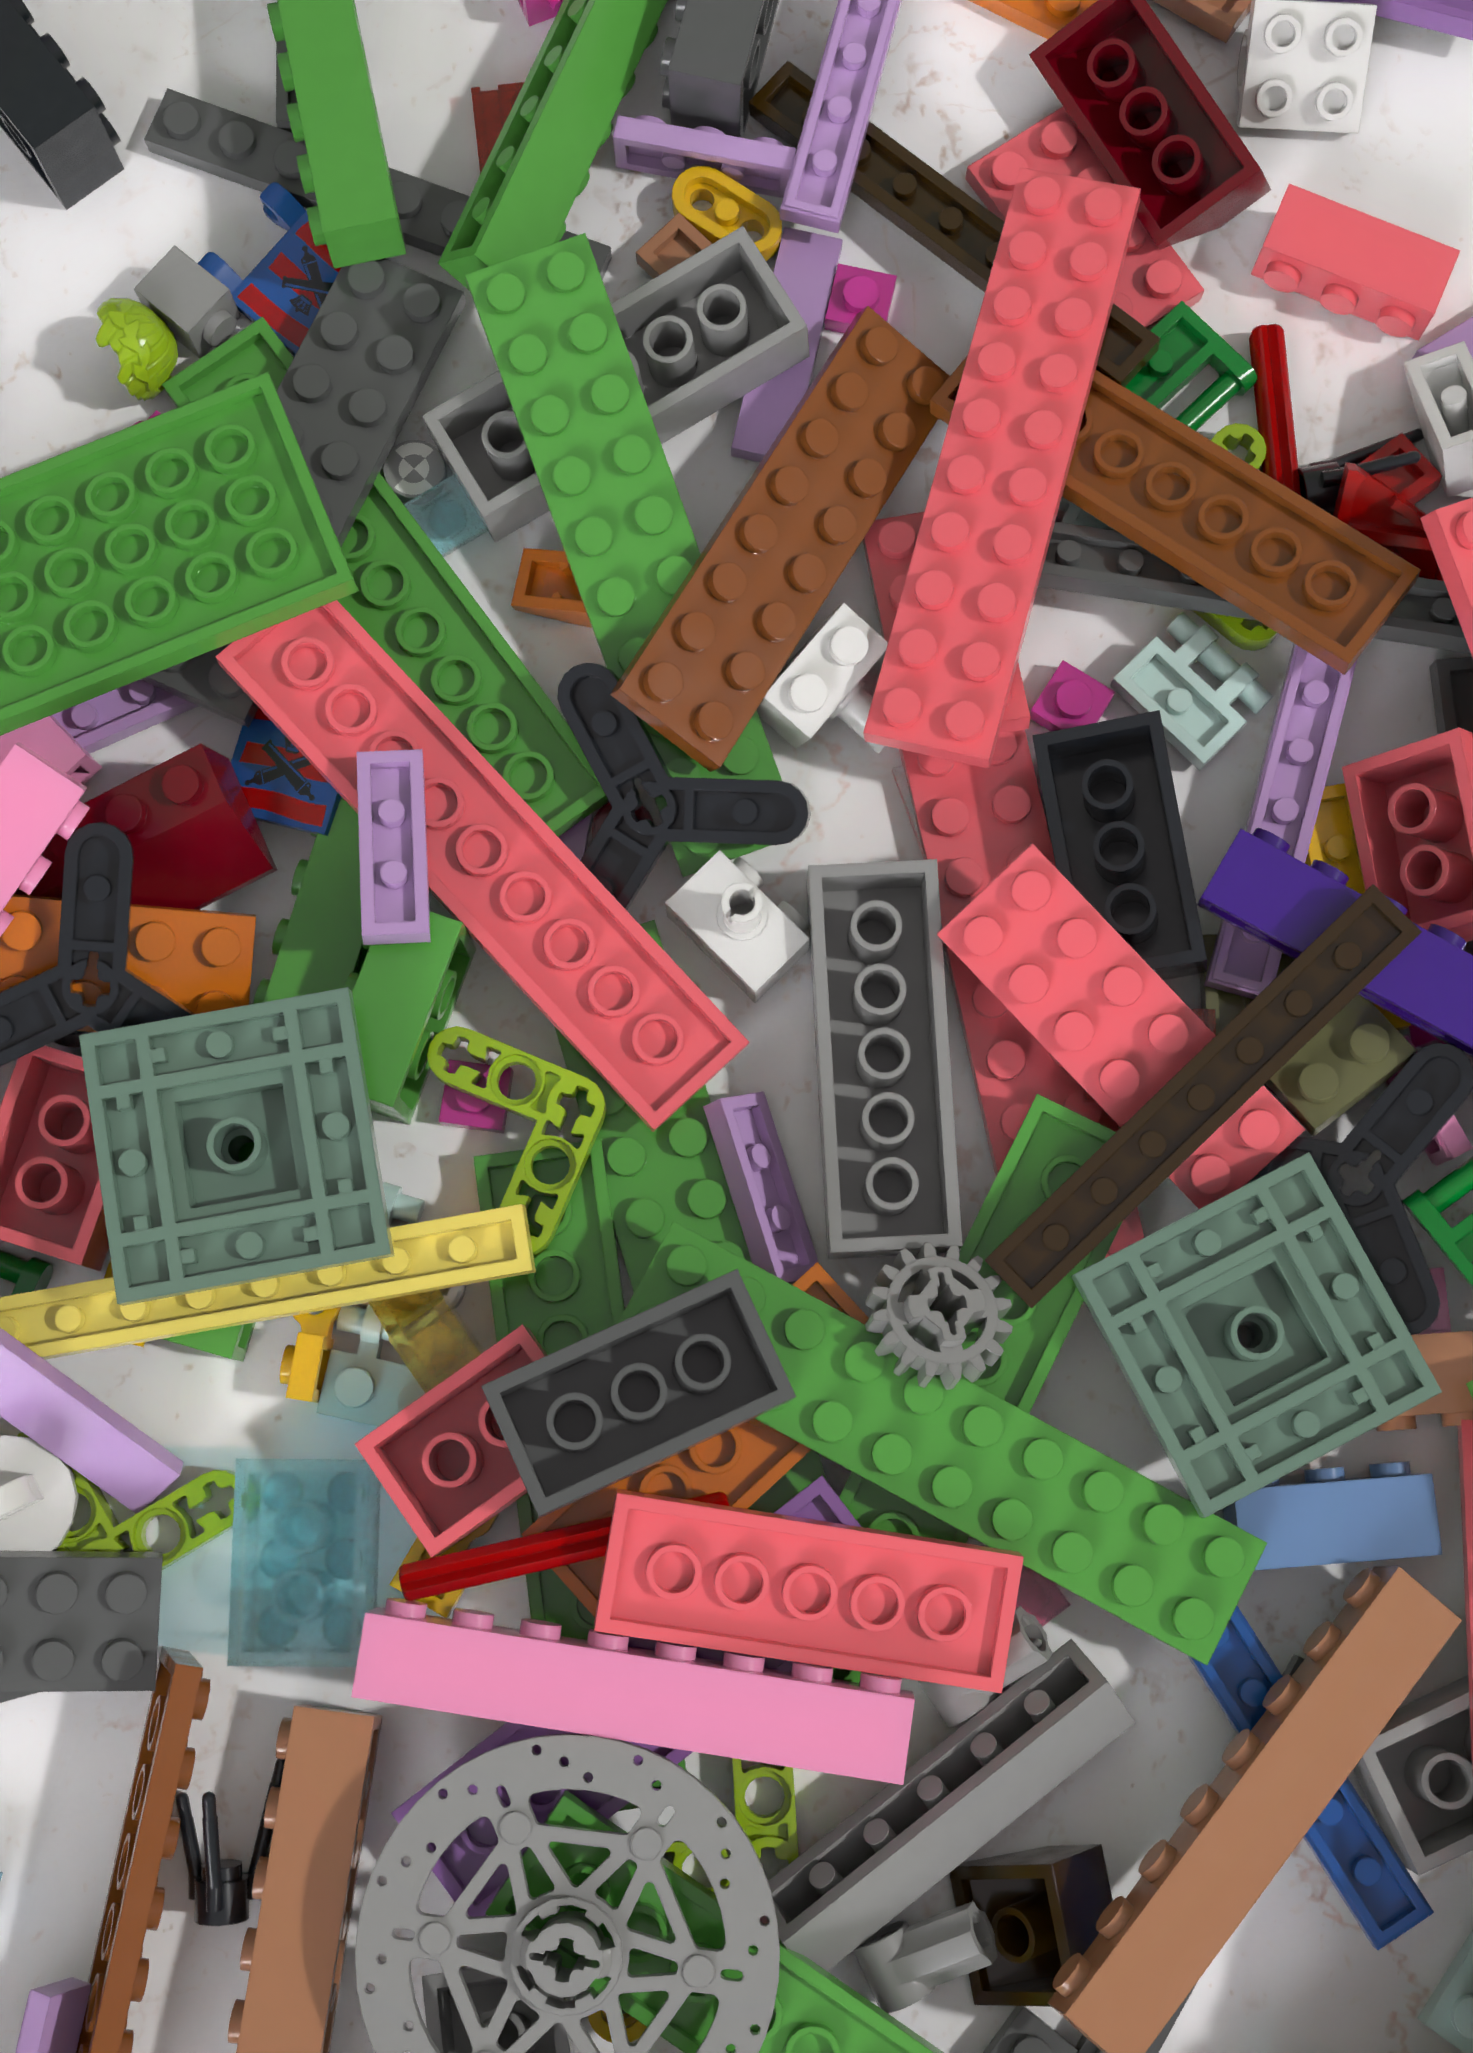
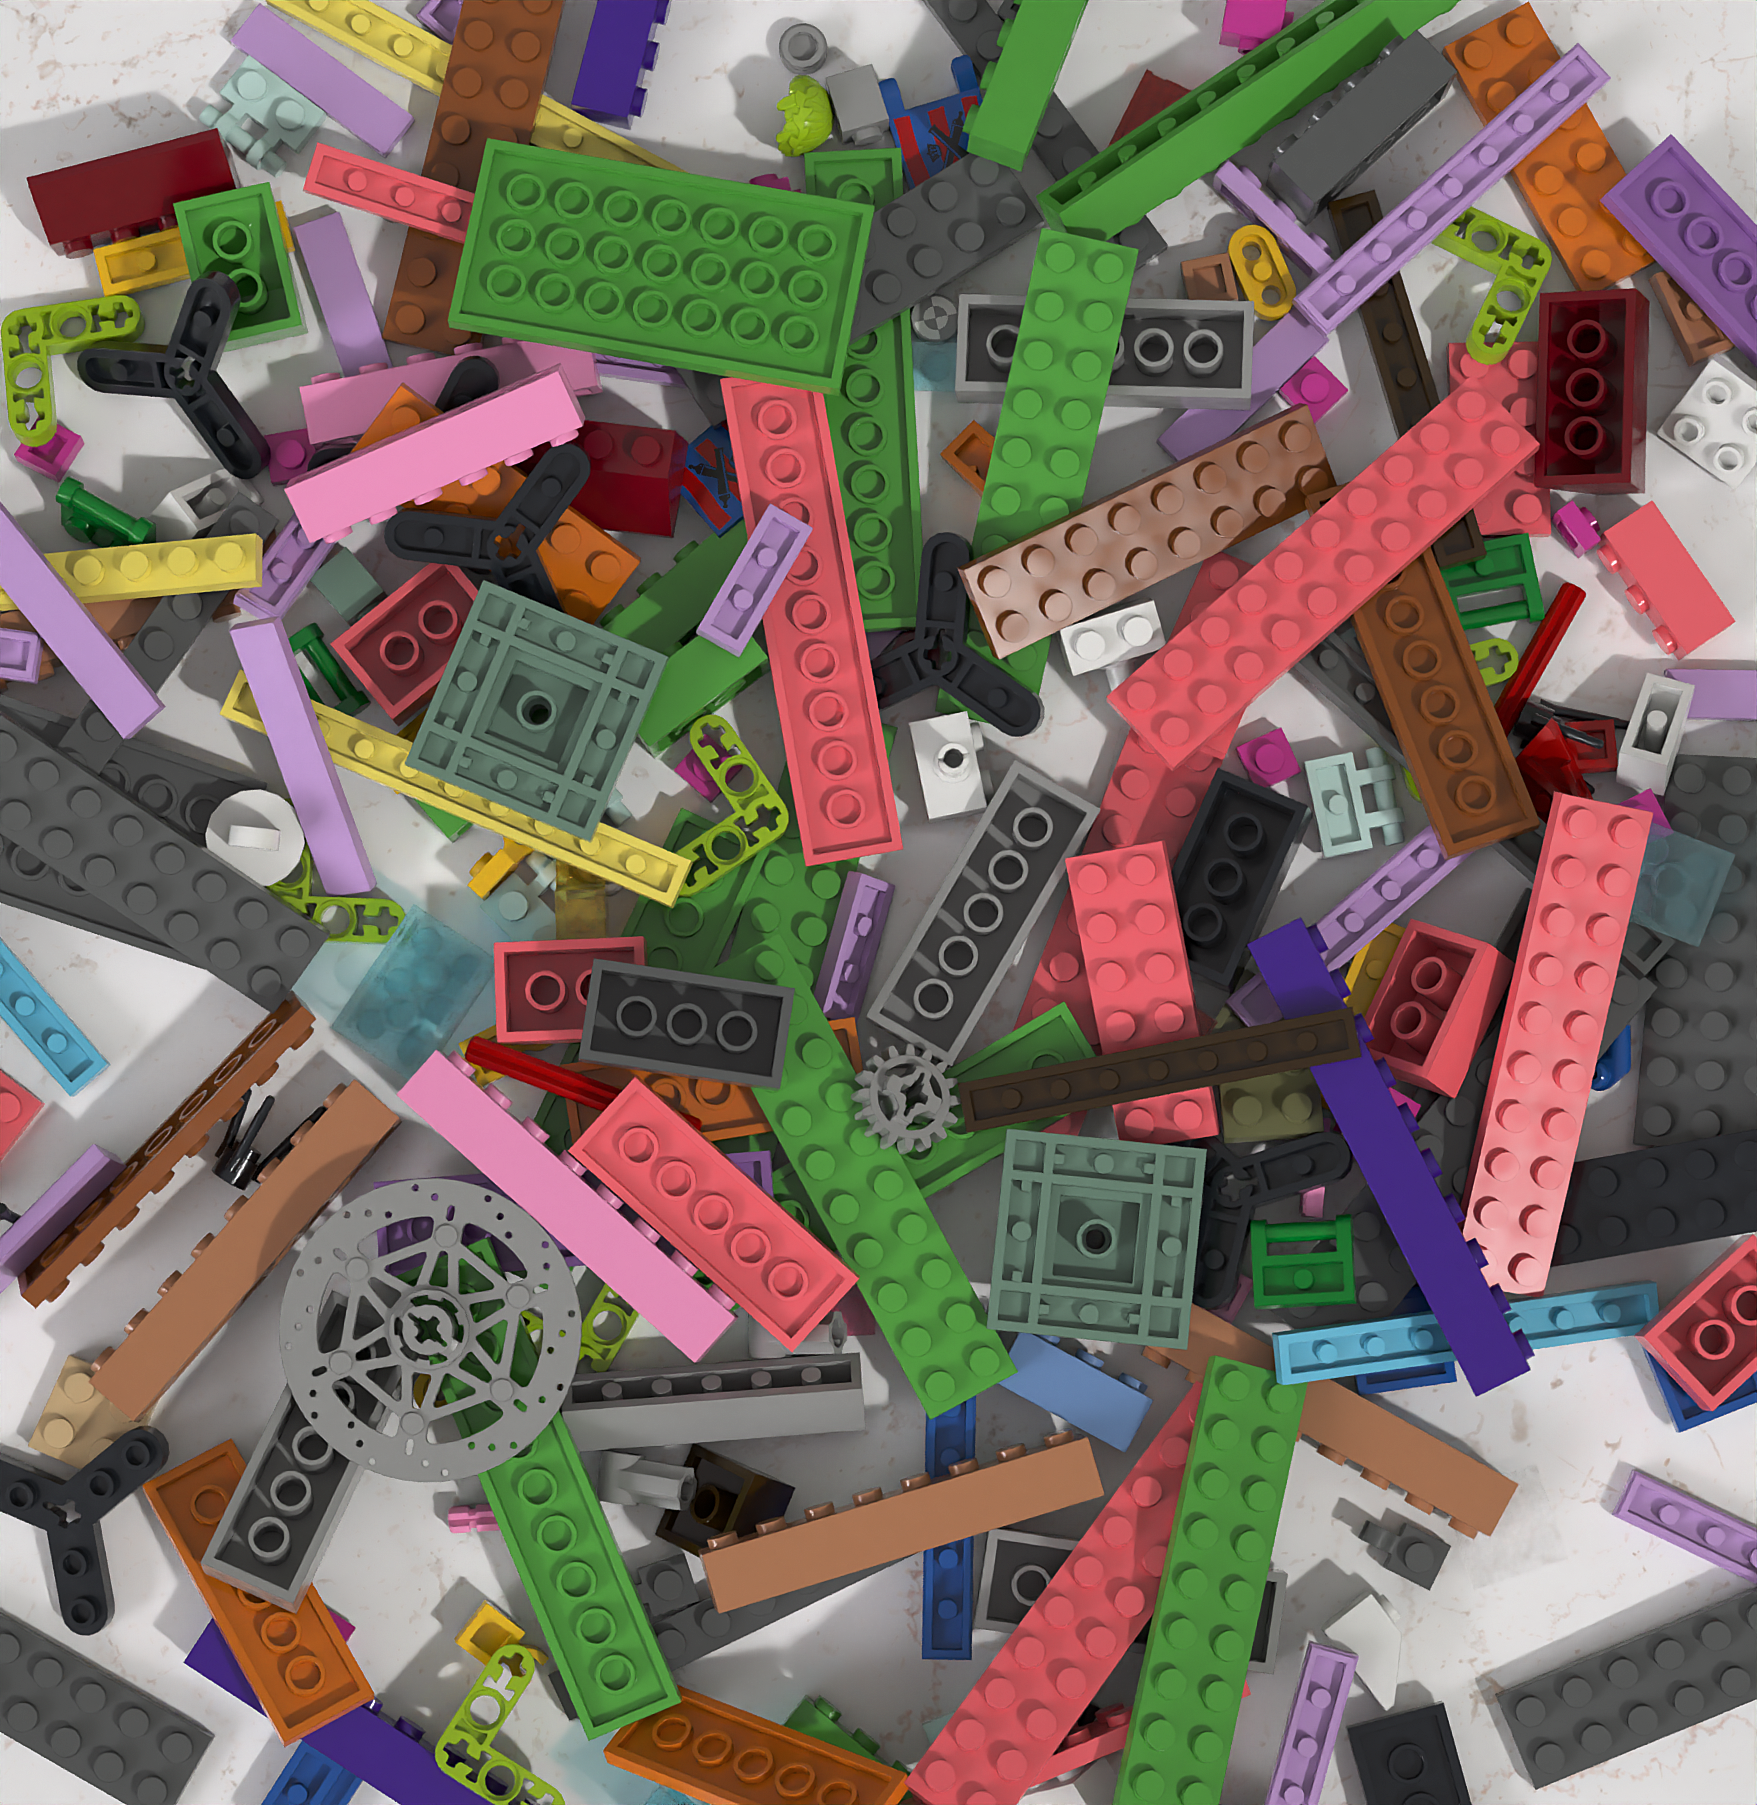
camera: 35 degrees right, 5 degrees up
(91, 282) = (803, 49): none -> light grey tile
(982, 63) = (1509, 277): none -> lime beam
(1228, 267) = (1577, 528): none -> dark pink plate

